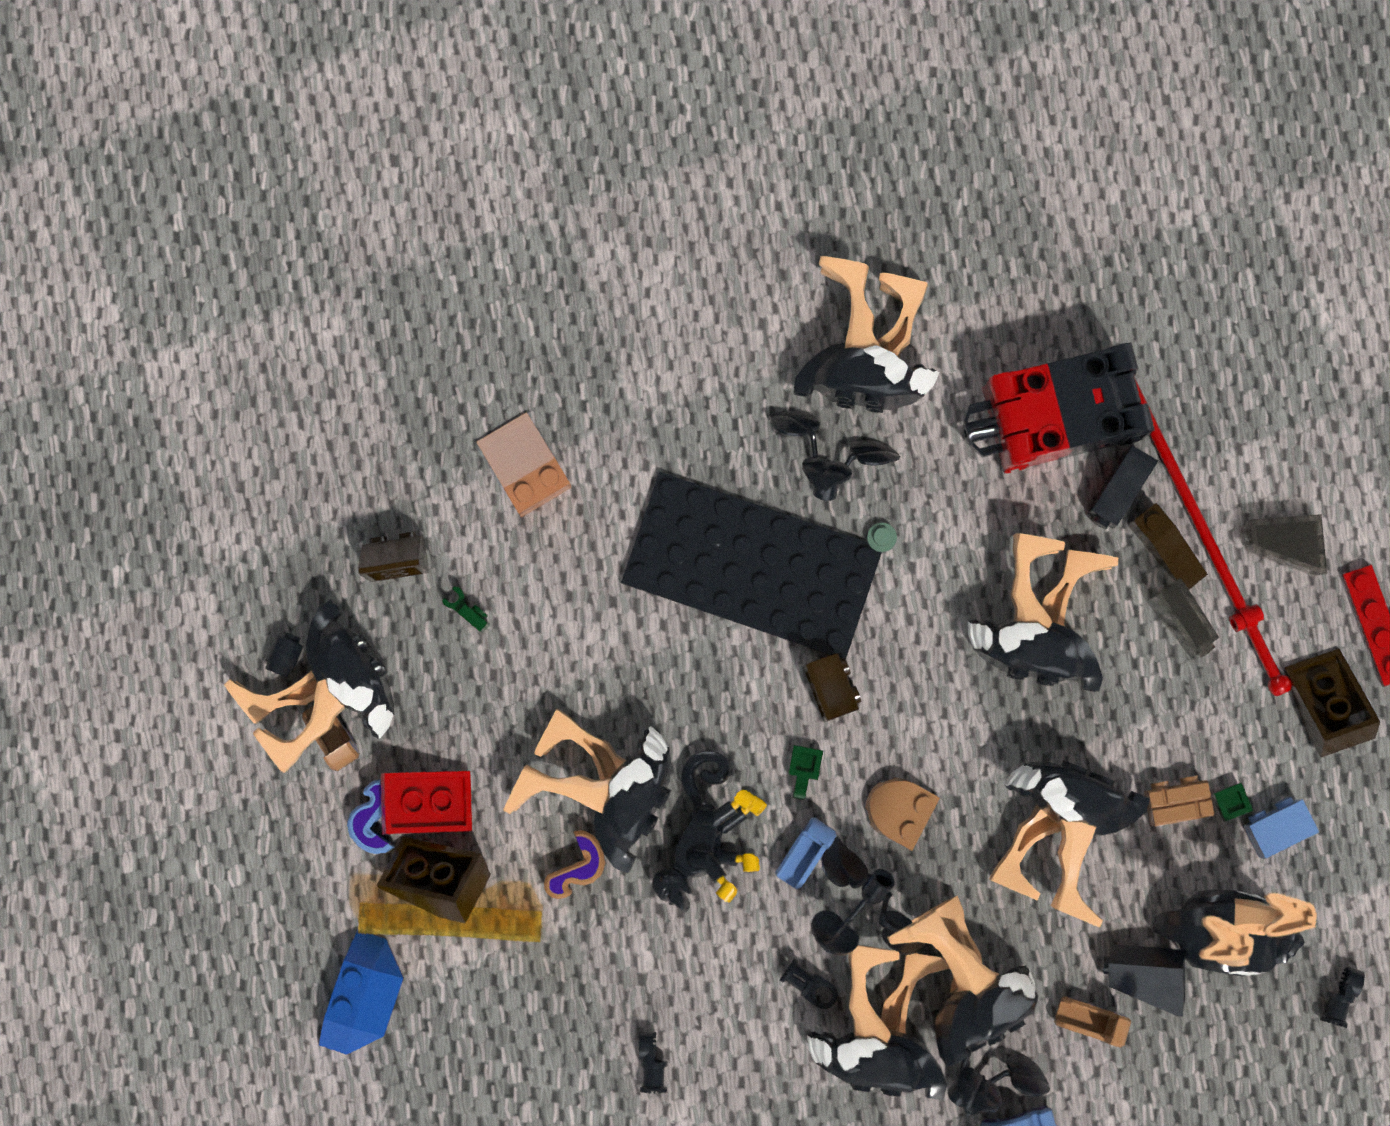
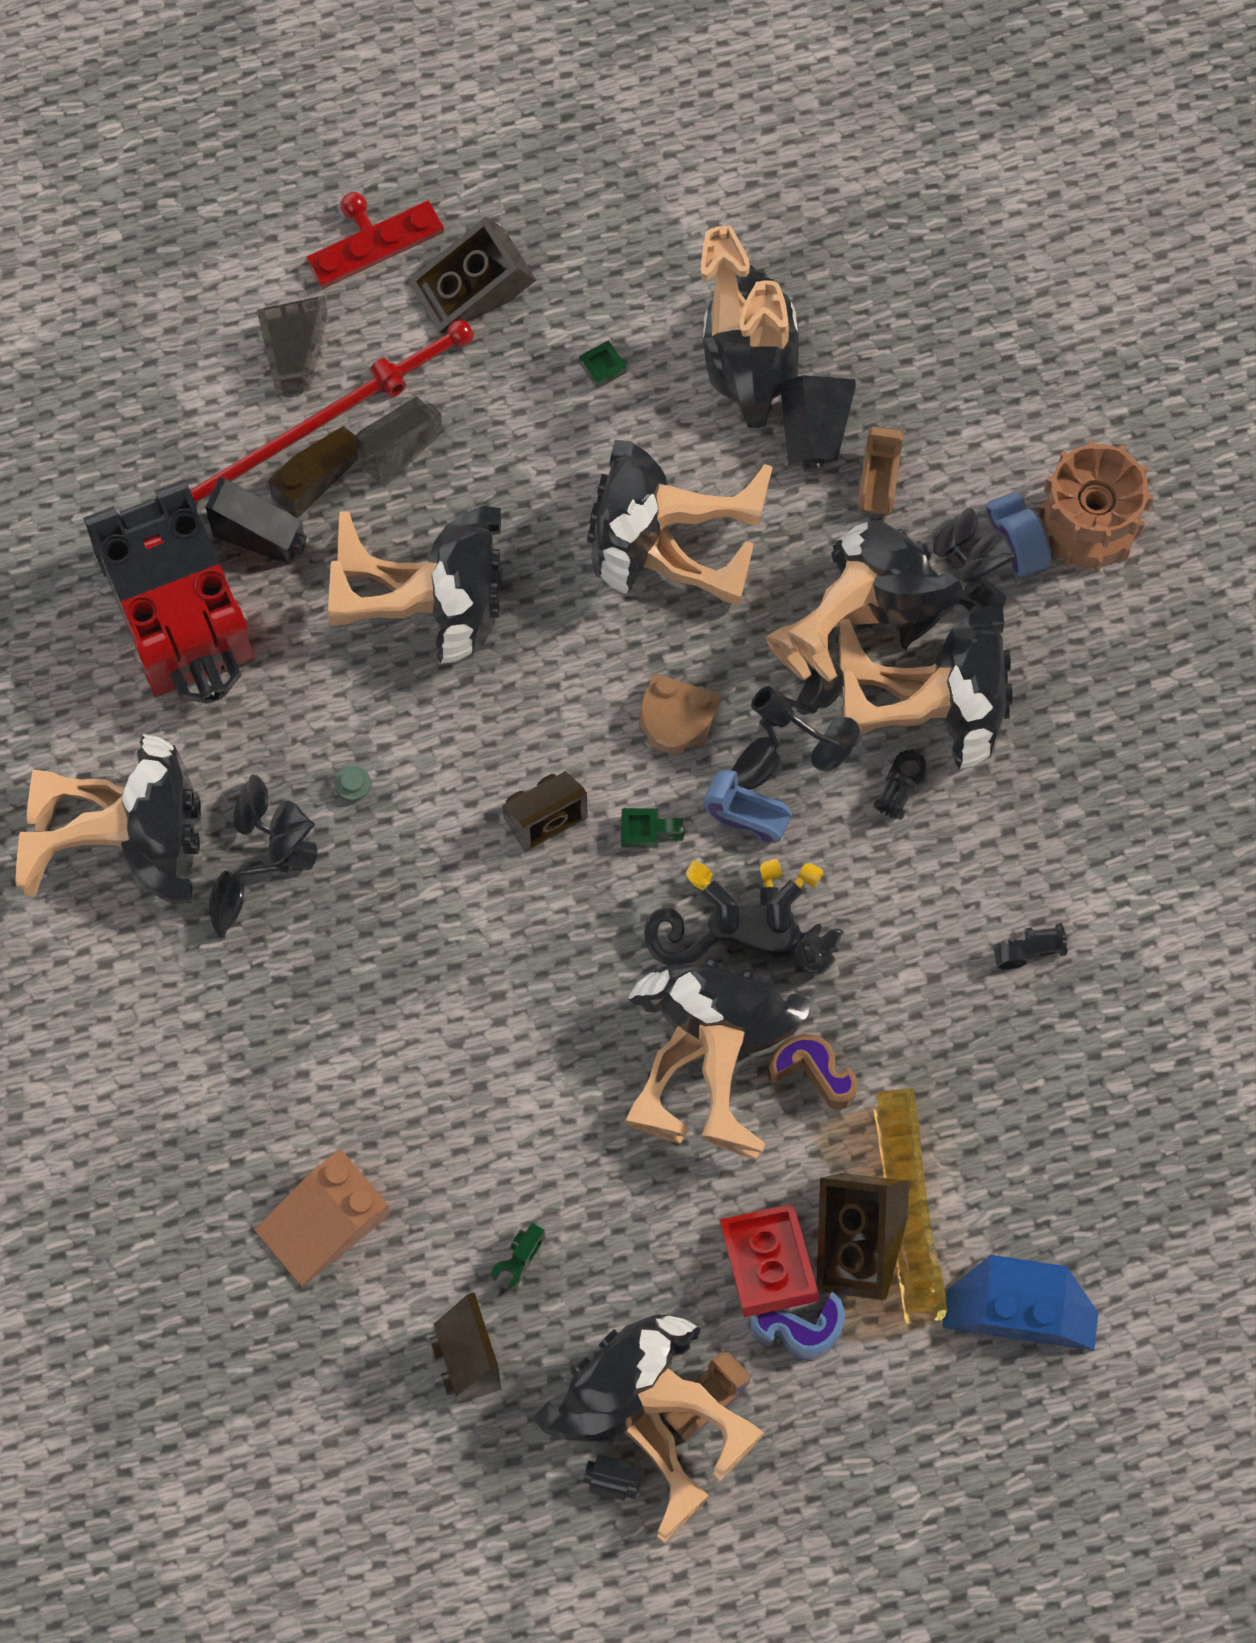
camera: 100 degrees left, 15 degrees down
(751, 565) = (409, 931): black plate -> none
(1179, 802) = (611, 415): medium nougat brick -> none
(1280, 827) = (623, 311): medium blue brick -> none
(1339, 1003) = (787, 219): black connector -> none

